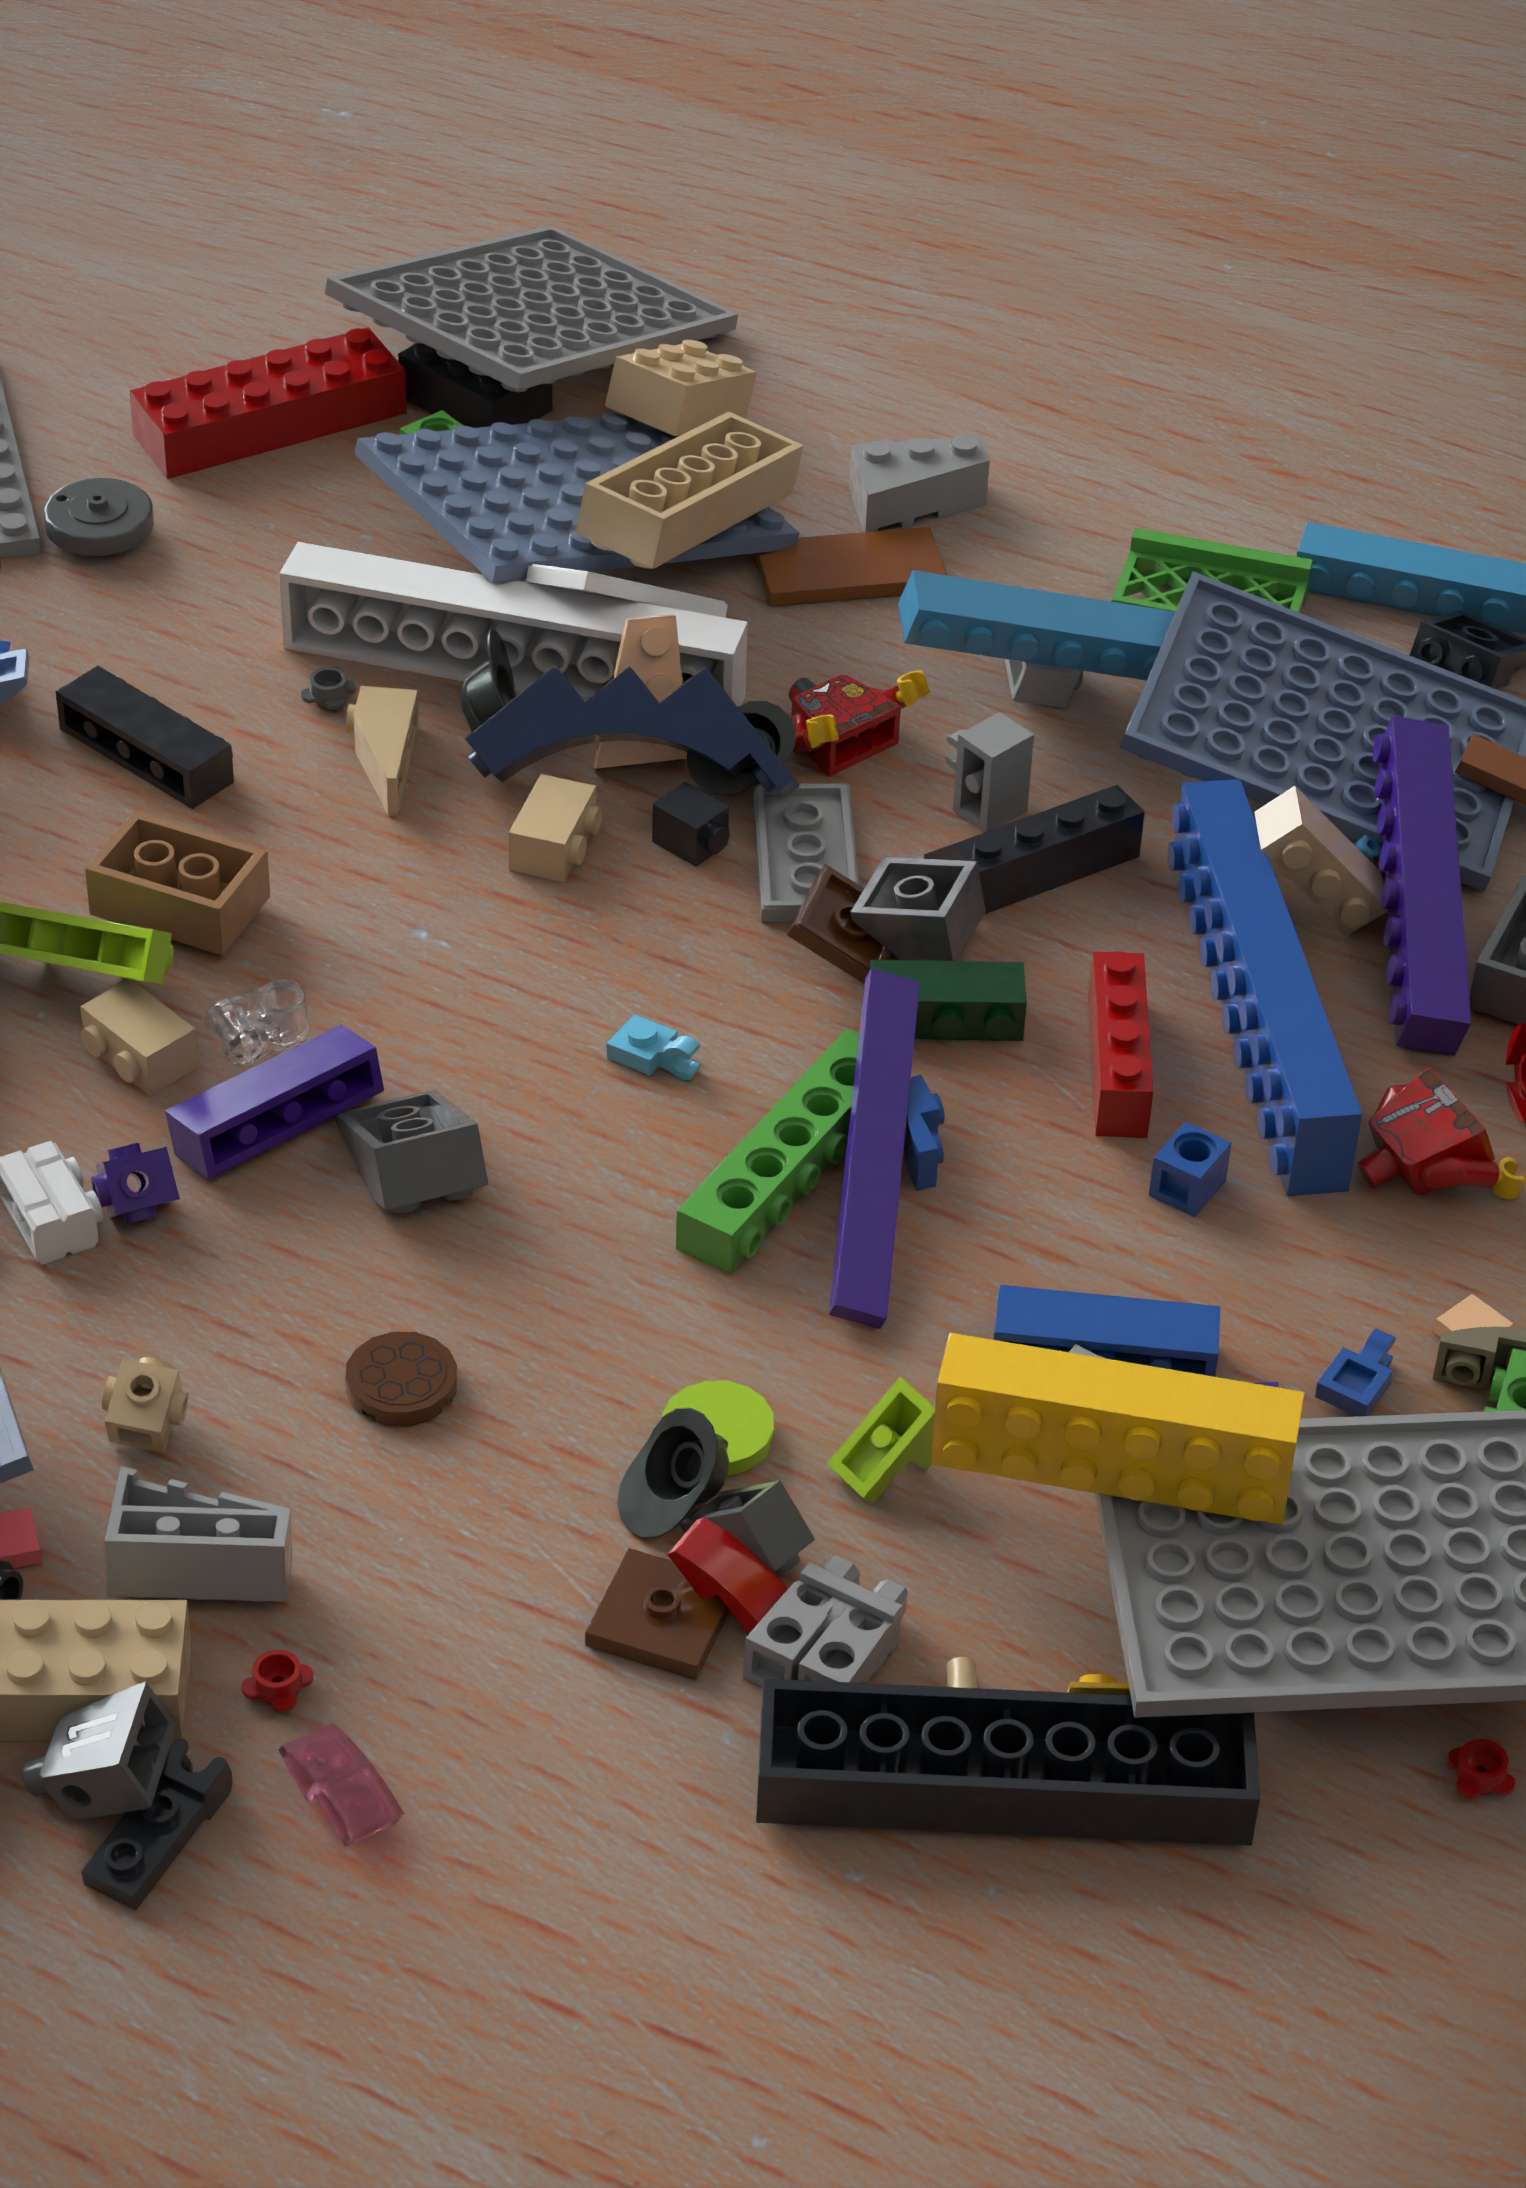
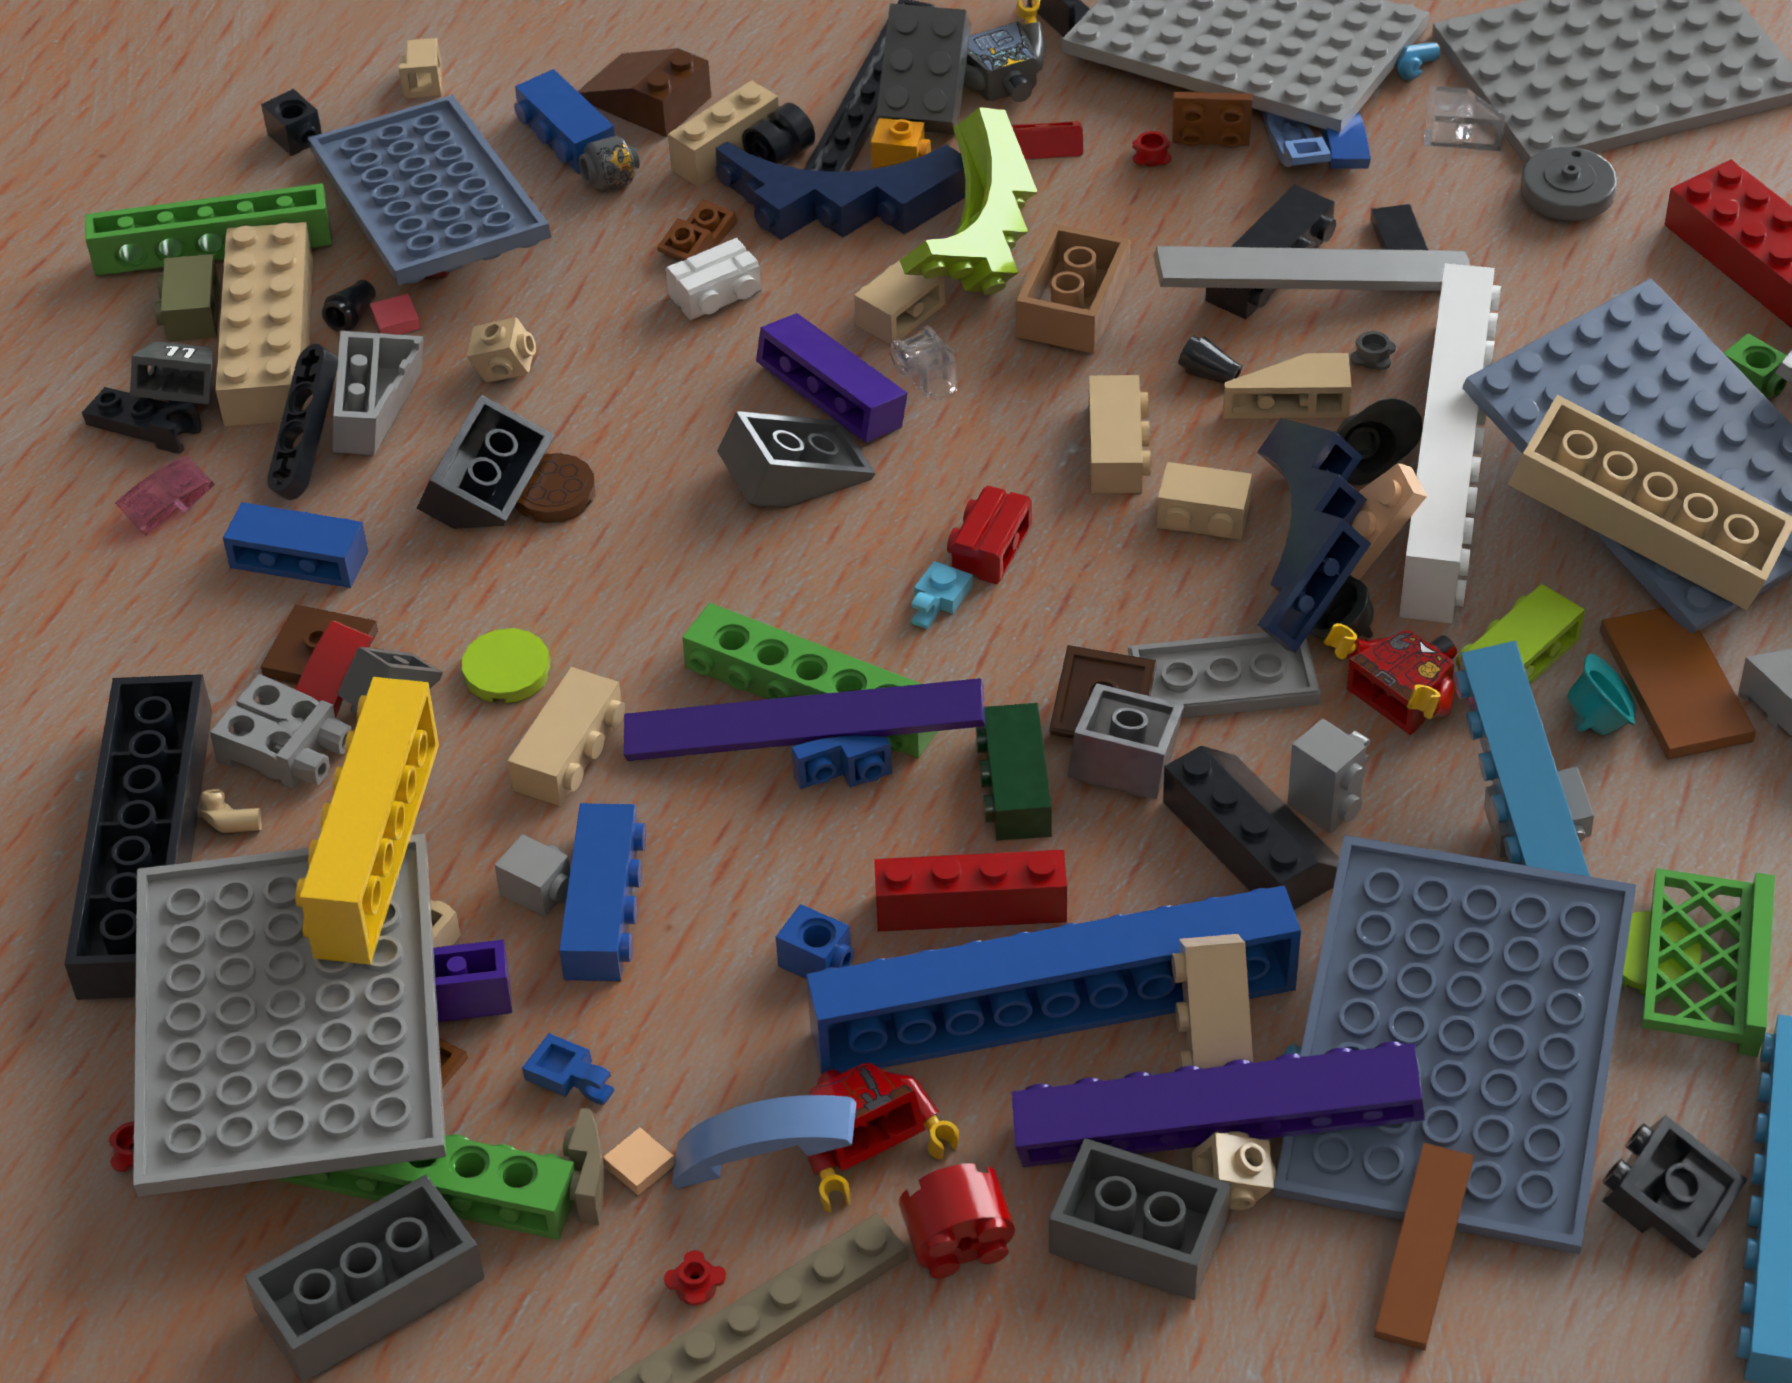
camera: 90 degrees right, 5 degrees up
(137, 649) = (1397, 228): none -> black tile
(153, 1176) = (730, 315): dark purple brick -> none
(210, 698) = (1303, 268): none -> light grey tile
(261, 1593) = (292, 466): none -> black beam
(277, 1667) = (258, 455): red plate -> none
(315, 806) = (1208, 361): none -> black cone
(376, 1427) = (485, 468): none -> black slope
(428, 882) = (1118, 434): none -> tan brick
(473, 1629) = (295, 544): none -> blue brick
(576, 991) = (990, 533): none -> red brick
(623, 589) = (1486, 462): white tile -> none
(672, 1473) = (441, 637): pearl dark grey piece -> none
(690, 824) = (1229, 587): black brick -> none
(806, 639) = (1541, 625): none -> lime brick
(848, 1355) = (566, 736): none -> tan brick
(878, 606) = (1600, 698): none -> teal piece
(886, 1440) = (476, 757): lime slope -> none
(1480, 1200) = (762, 1127): none -> medium blue slope
(1489, 902) = (1237, 1161): none -> tan brick

